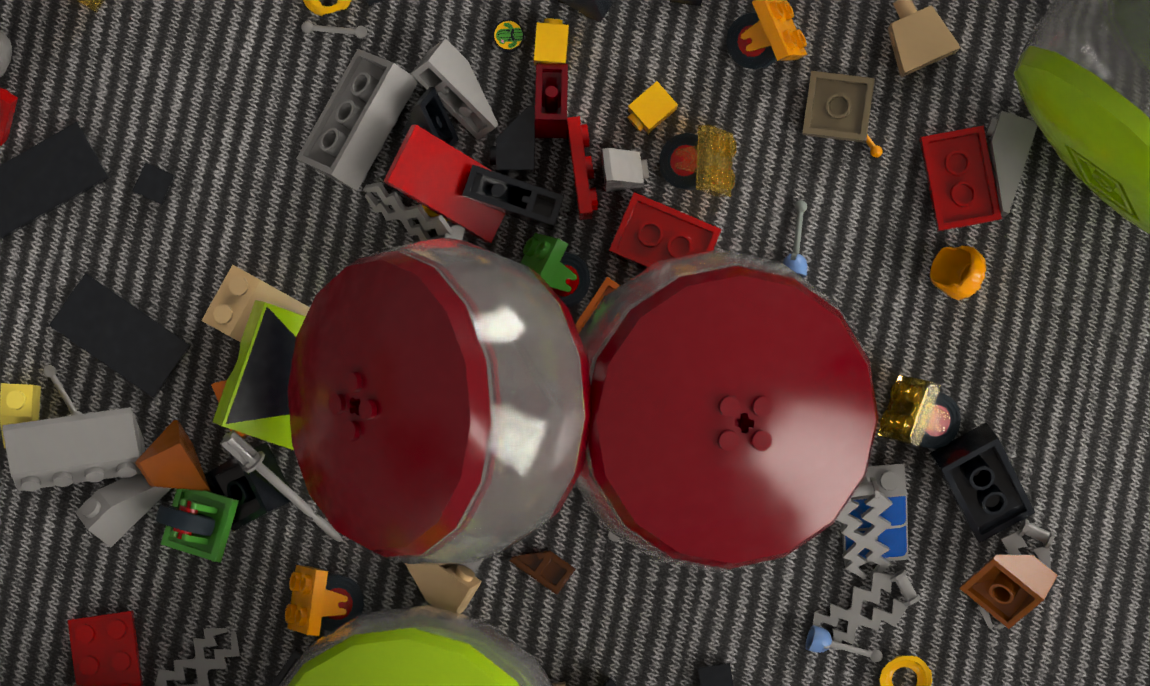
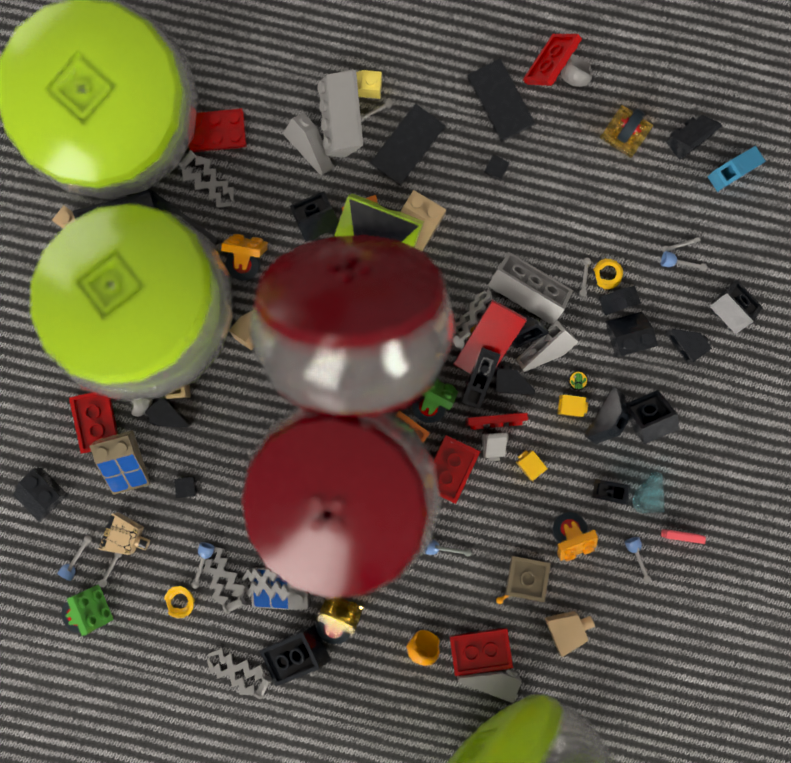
camera: 90 degrees right, 0 degrees up
(172, 461) = (331, 171): dark orange slope -> none
(198, 523) = (295, 184): bright green plate -> none
(253, 461) = (327, 215): light grey piece -> none
(545, 568) = (257, 389): reddish brown tile -> none
(551, 100) = (537, 404): dark red slope -> none
(700, 161) = (497, 493): clear yellow plate -> none
(1010, 586) = (229, 670): dark orange slope -> none

